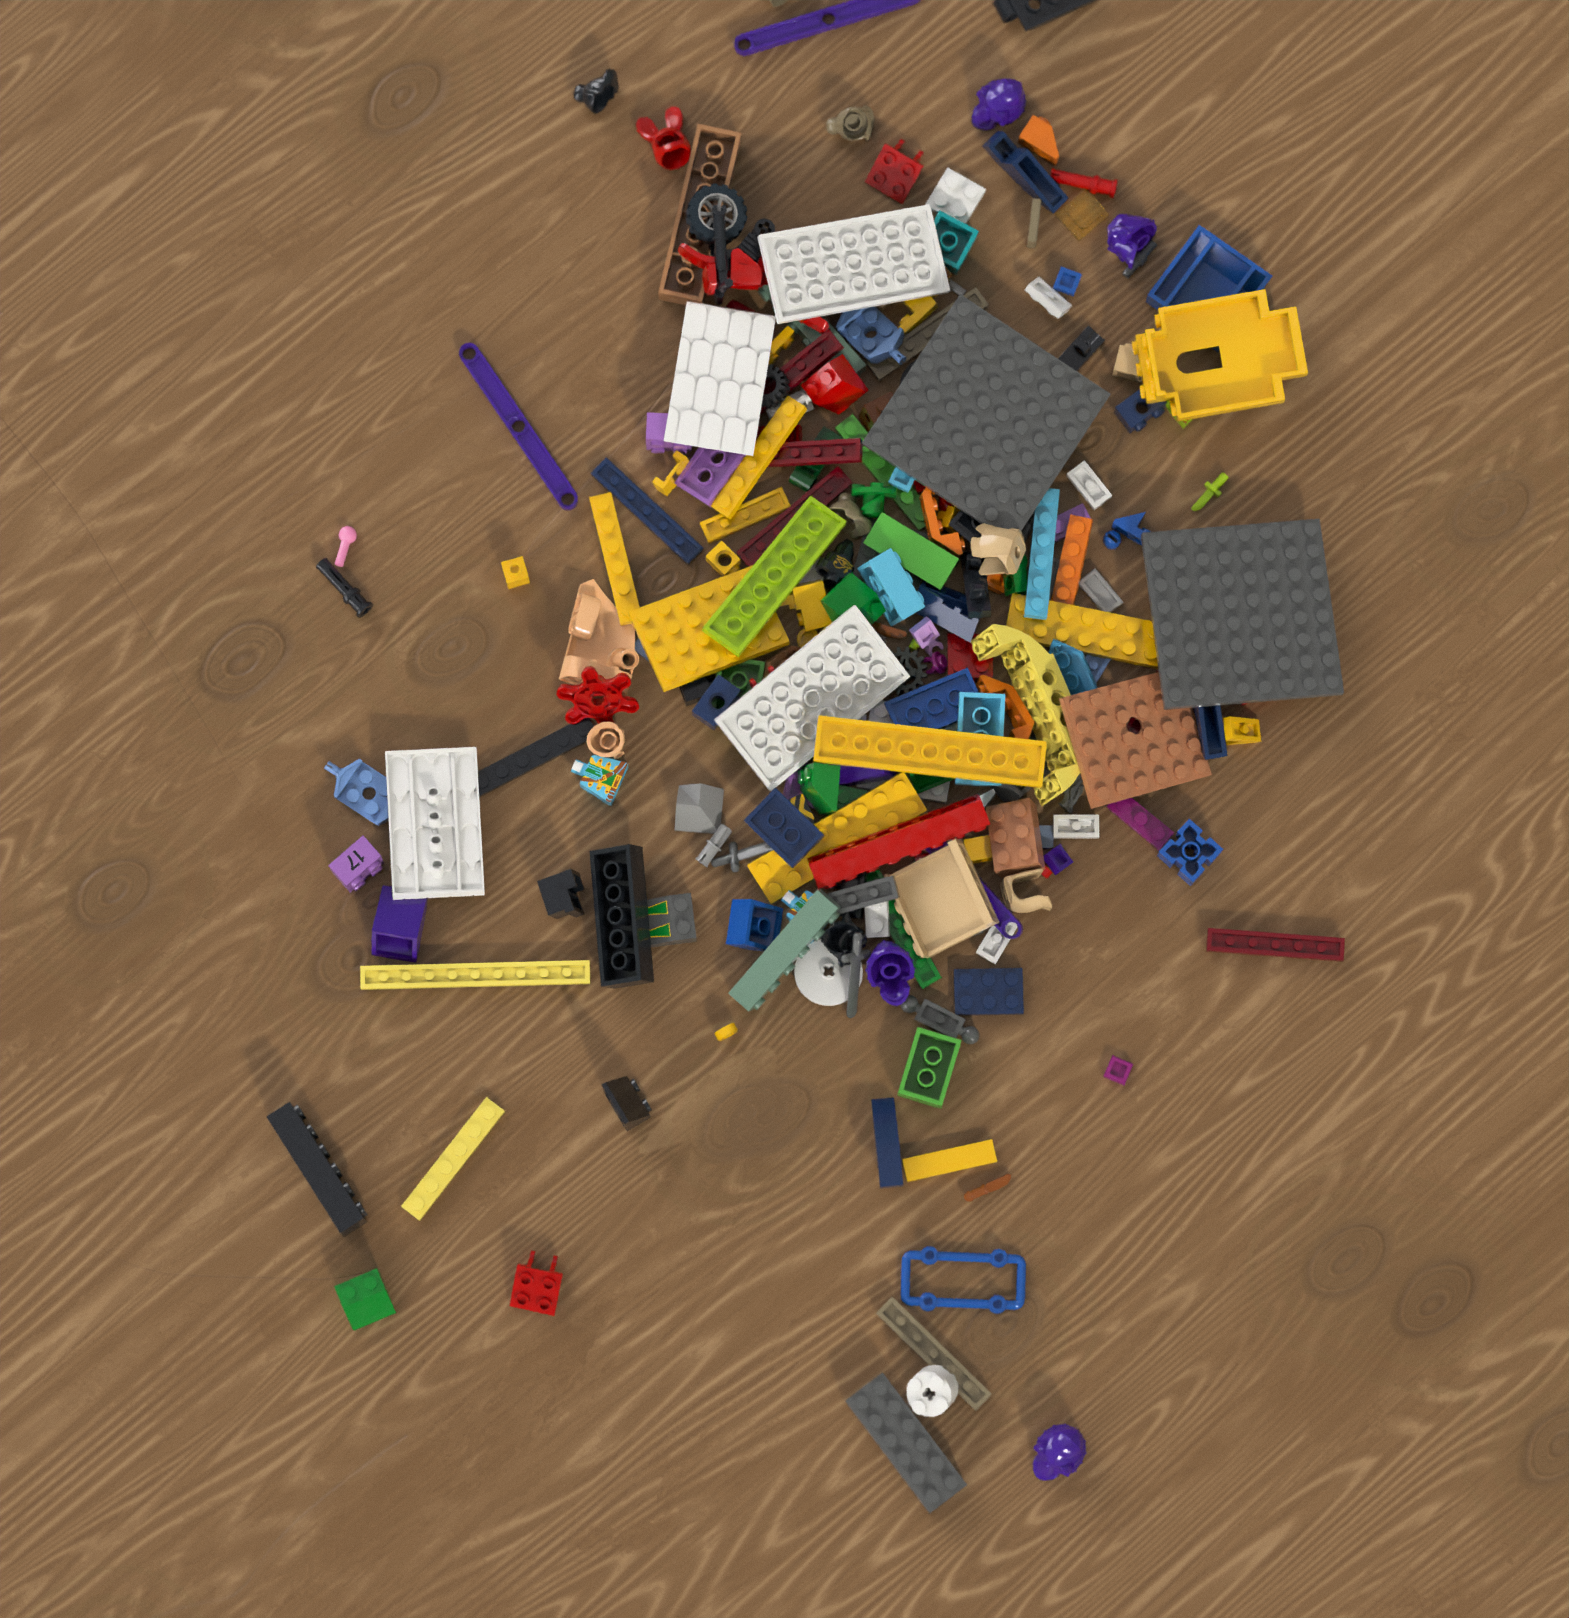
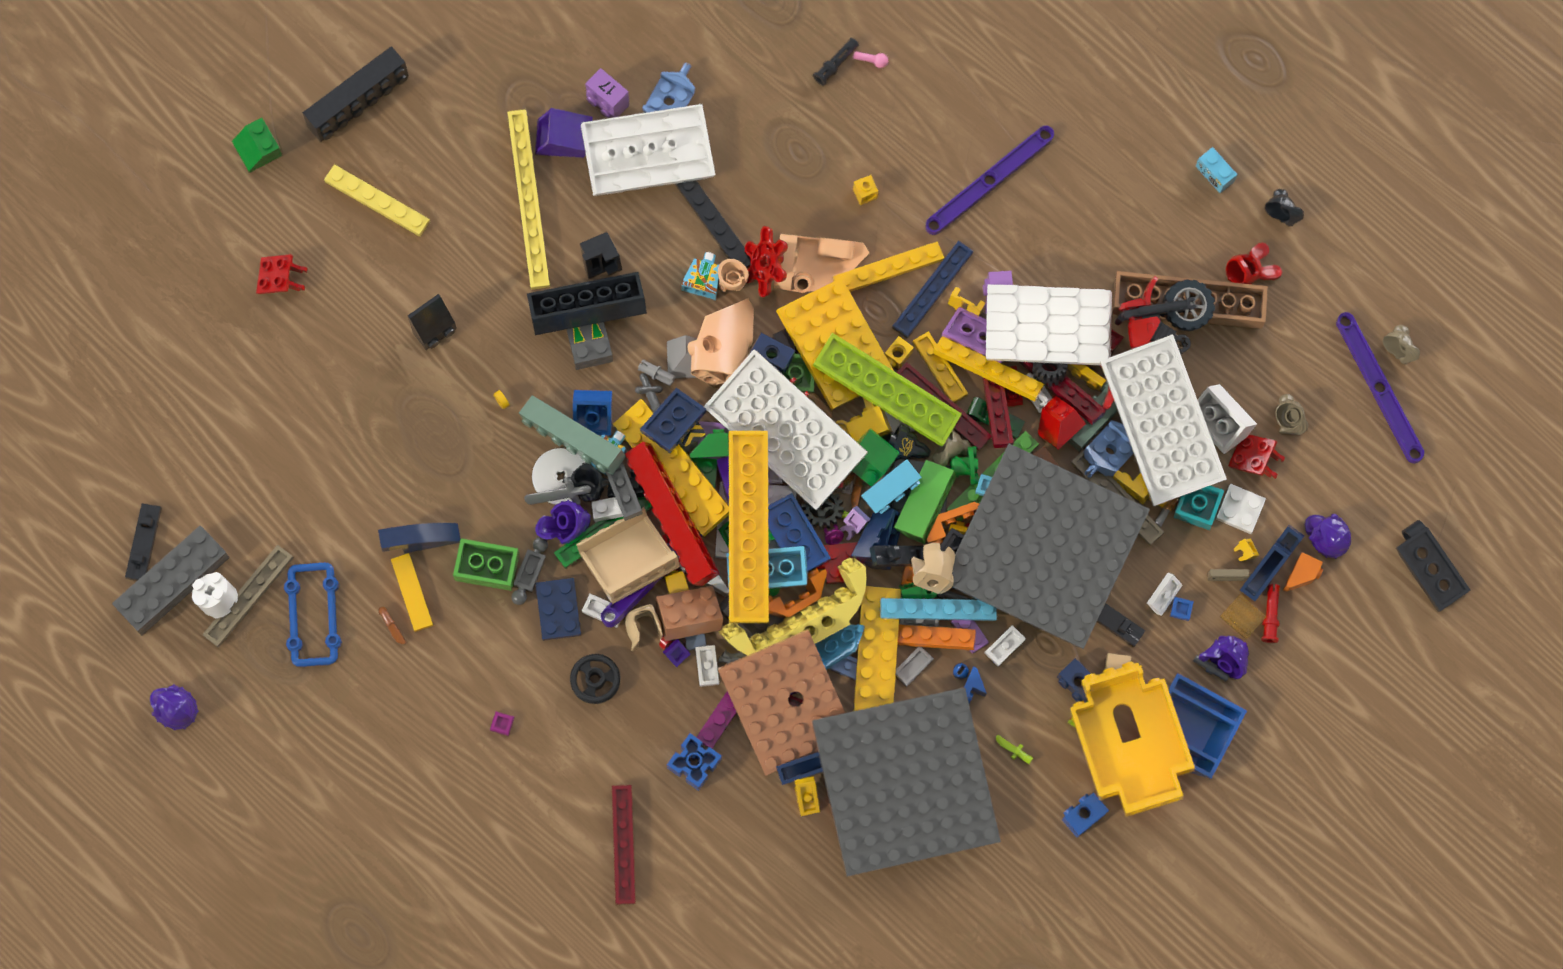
camera: 80 degrees right, 5 degrees down
(541, 161) = (1216, 170): none -> medium azure brick
(694, 759) = (722, 343): none -> light nougat panel
(848, 197) = (1224, 418): none -> white slope
(852, 1474) = (143, 541): none -> black hinge
(1006, 195) = (1248, 548): none -> yellow tile
(1096, 965) = (612, 675): none -> black wheel
(1293, 410) = (1078, 824): none -> blue brick

